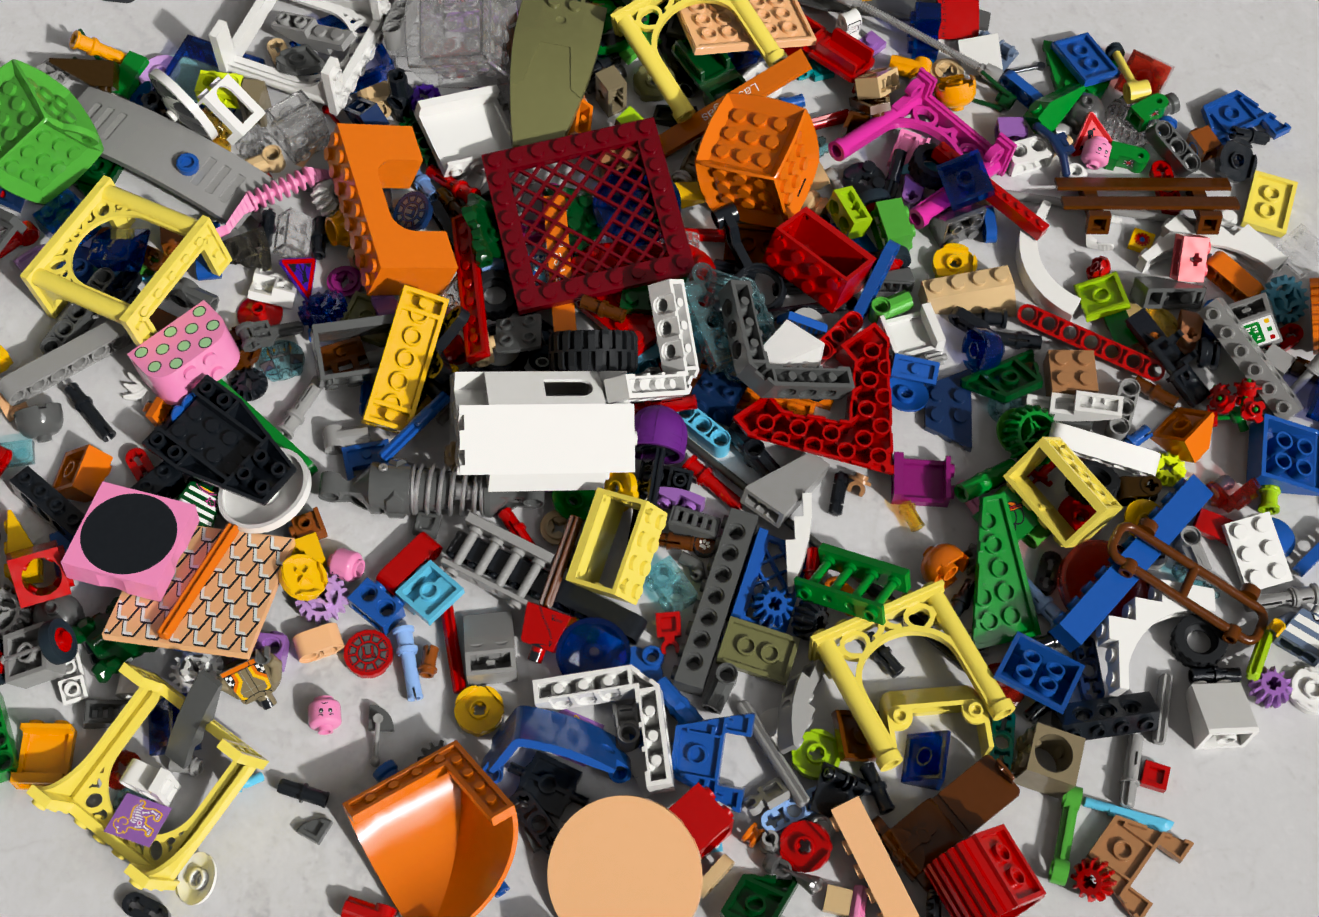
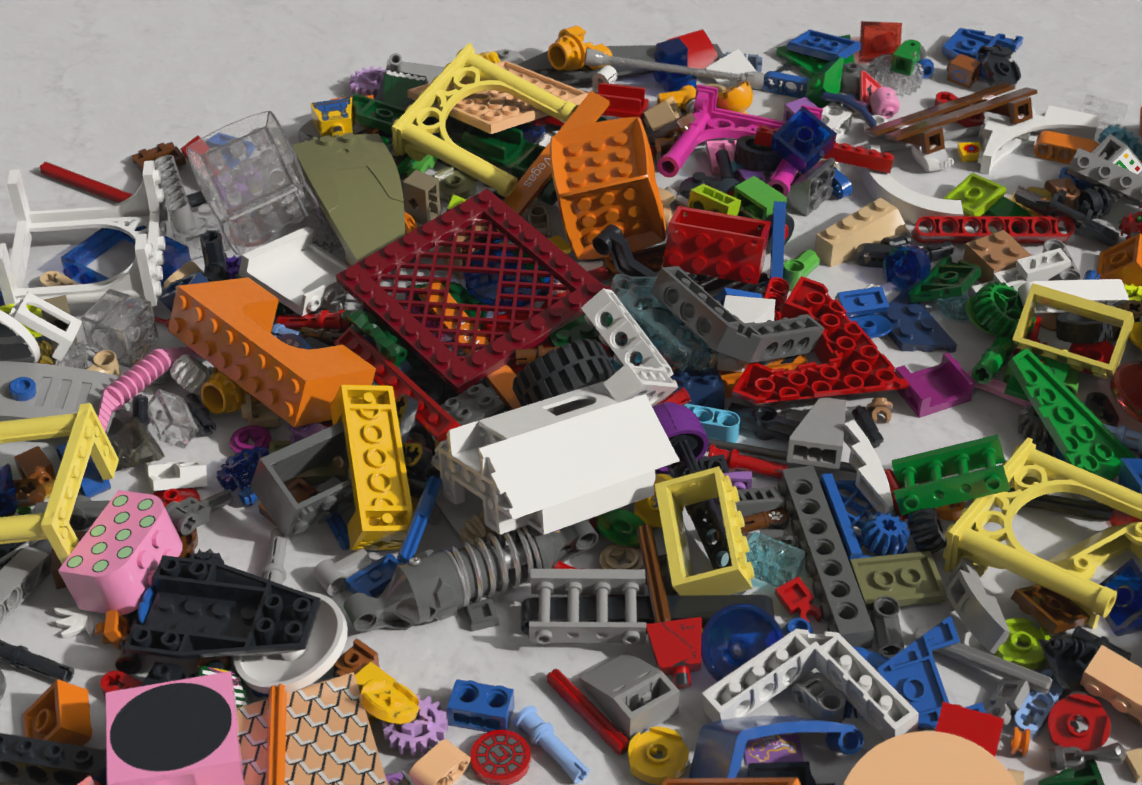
camera: 25 degrees left, 20 degrees down
(282, 360) = (225, 533): clear light blue dish -> none
(299, 61) = (92, 270): dark grey tile -> none
(301, 273) = (198, 448): piece -> none
(306, 30) = (85, 249): light grey slope -> none
(346, 564) = (423, 680): bright pink head -> none
(407, 561) = (490, 651): red beam -> none
(428, 663) = (574, 739): dark orange pin -> none
(429, 592) = (531, 666): medium azure plate -> none
(766, 847) = (1041, 738): light grey pin -> none
(886, 658) = (1026, 539): black pin -> none
(897, 281) = (793, 245): dark grey slope -> none
(911, 516) = (947, 416): clear yellow pin -> none
(913, 333) = (841, 274): white panel -> none
(943, 563) = (1012, 431): orange cylinder -> none
(953, 252) = (820, 212): yellow plate -> none
(1004, 98) = (776, 94): dark green plant -> none
(1099, 267) = (952, 178): red plate -> none
(1127, 157) = (913, 99): green leg -> none
(1133, 89) = (882, 48): light yellow piece -> none
(1156, 393) = (1081, 247): reddish brown pin -> none
(1166, 293) = (1025, 174): dark grey slope -> none
(1182, 154) = (945, 76): dark grey beam -> none
(1182, 266) = (1024, 141): brick -> none
(1269, 203) = (1051, 90): light yellow plate -> none

